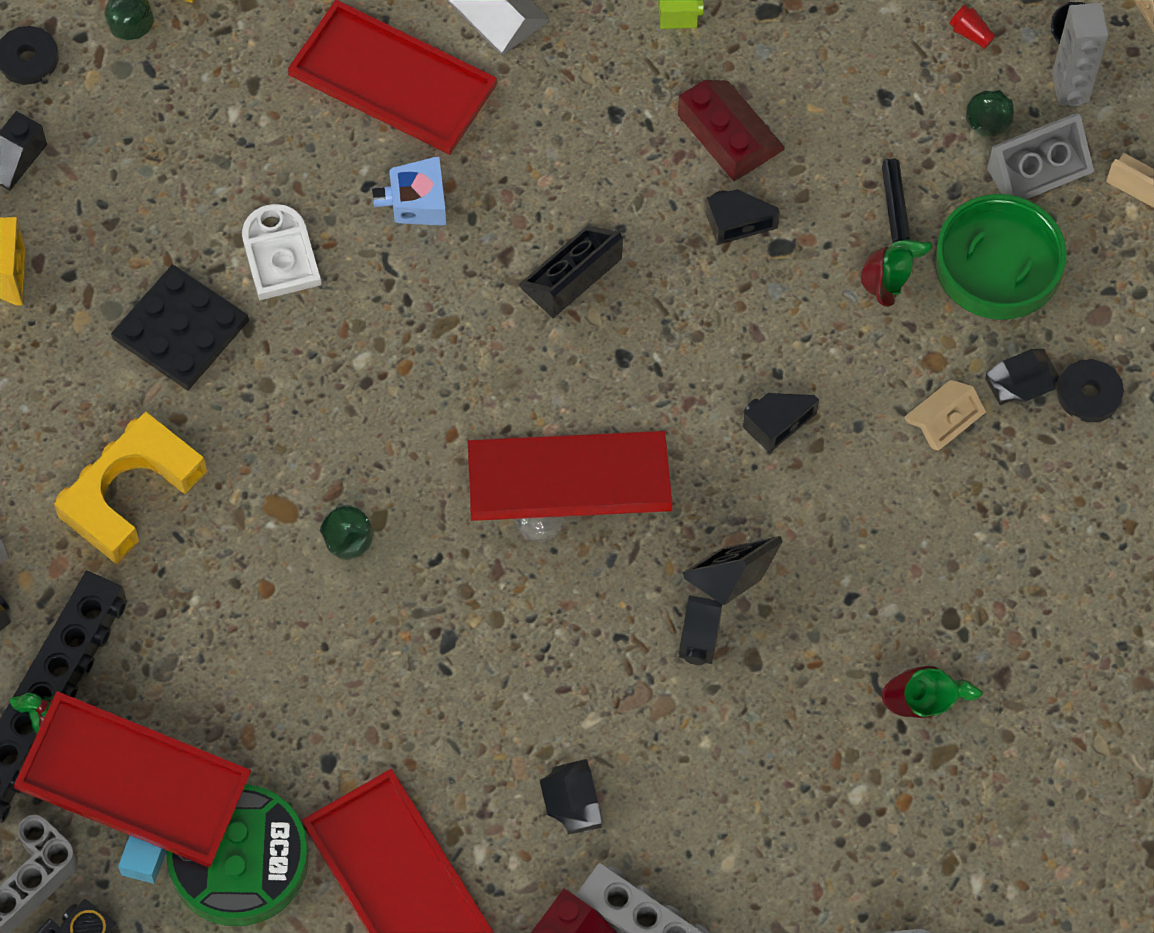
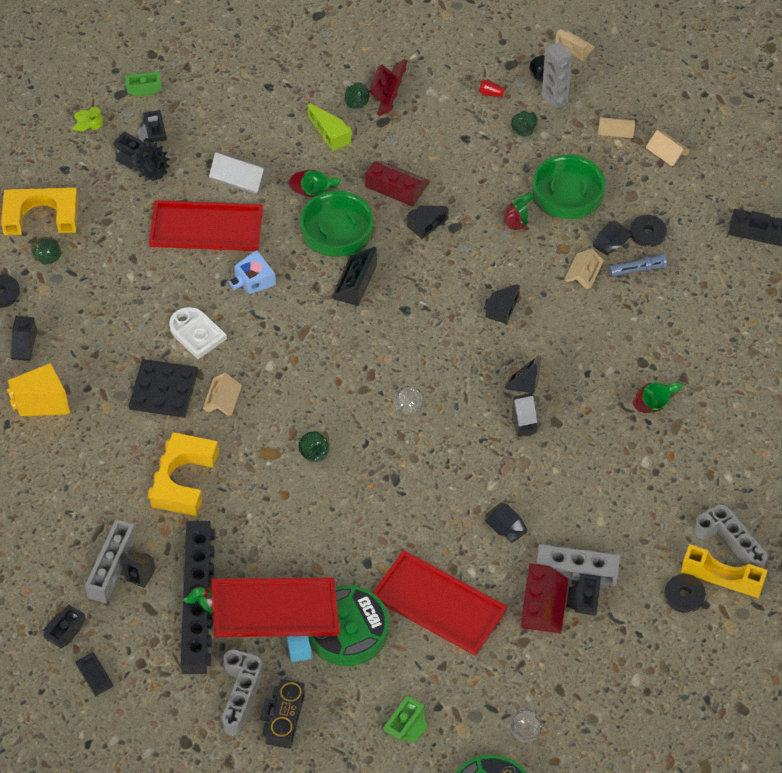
camera: 25 degrees left, 10 degrees down
(261, 379) = (222, 394): none -> tan panel
(569, 475) = (413, 373): red tile -> none
(587, 75) = (312, 183): none -> green hair
(592, 162) = (337, 223): none -> green piece
(895, 200) = (500, 182): black axle -> none
(1041, 158) = (562, 134): light grey slope -> none
(1053, 450) = (647, 264): none -> sand blue pin

